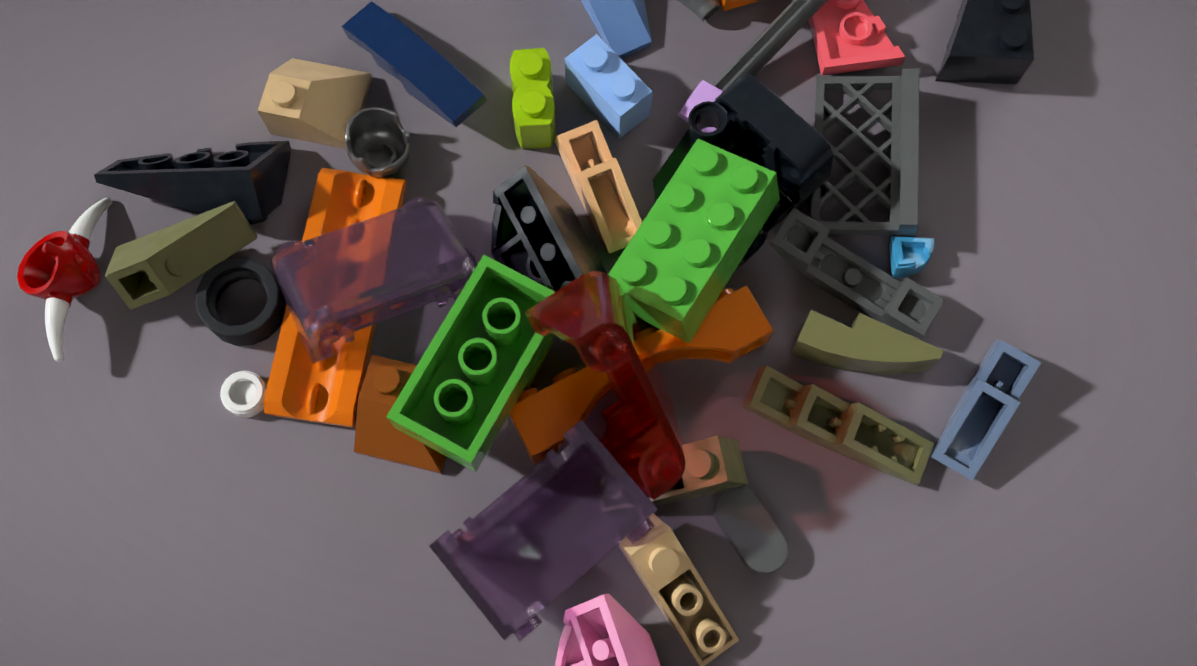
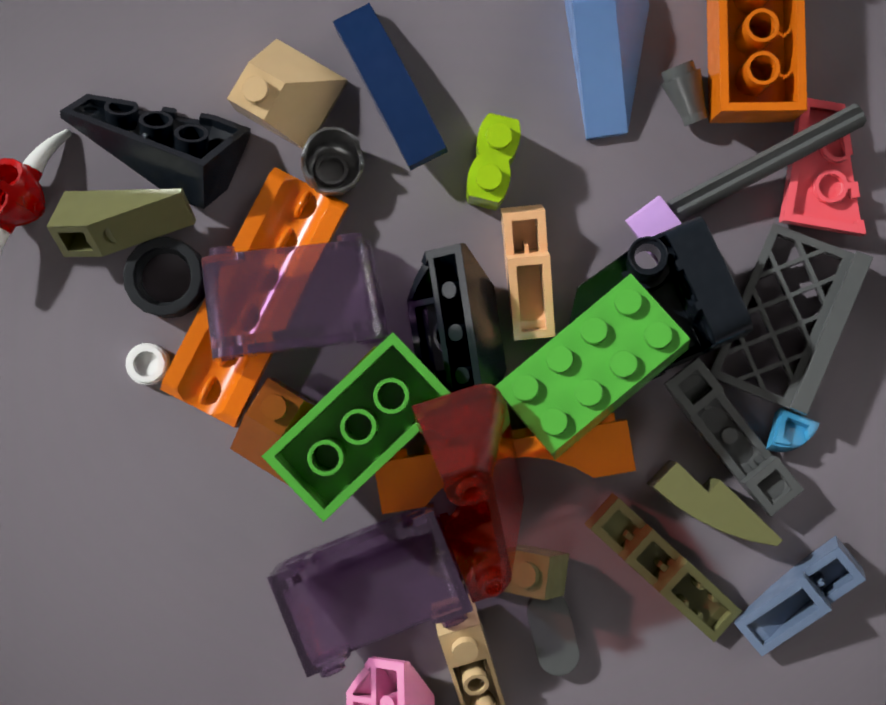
camera: 20 degrees right, 15 degrees up
(608, 86) = (568, 172): light blue brick -> none

